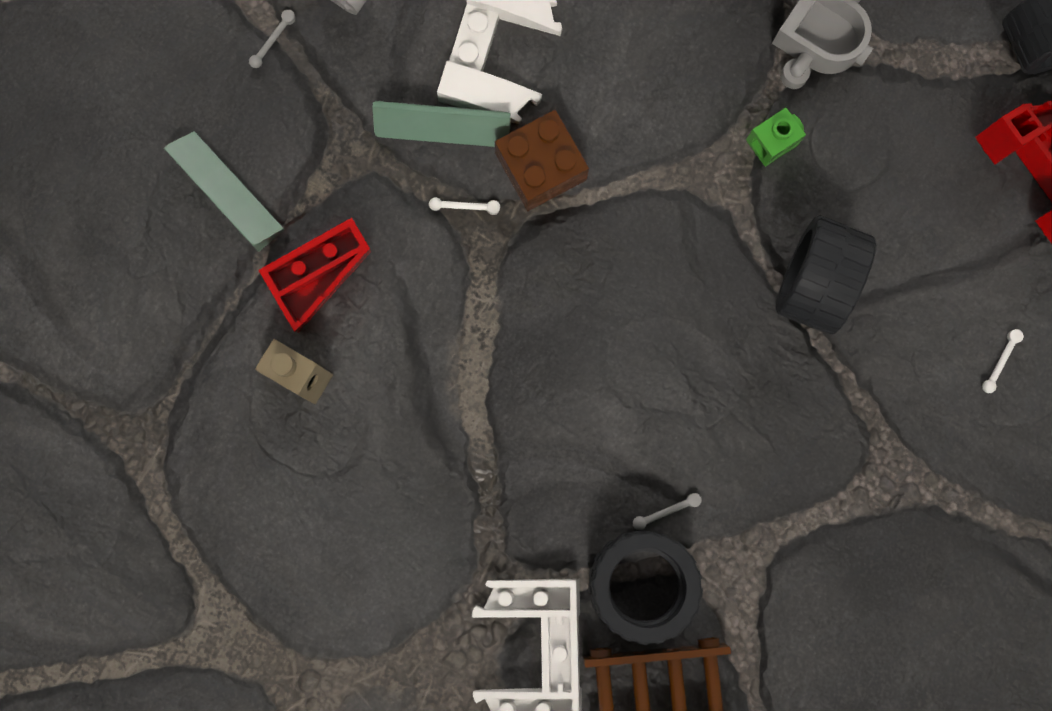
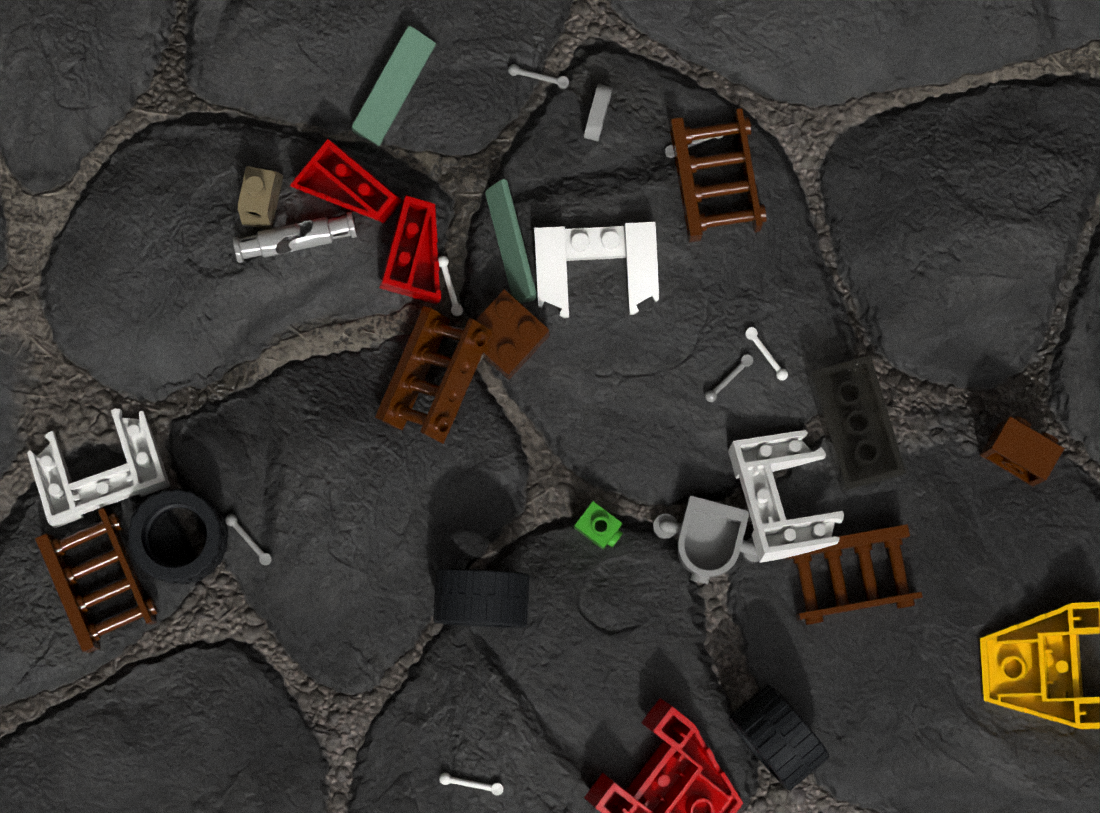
camera: 75 degrees right, 0 degrees up
(348, 375) = (317, 231): none -> light grey piece
(416, 226) = (413, 253): none -> red wedge
(540, 269) = (415, 364): none -> reddish brown fence

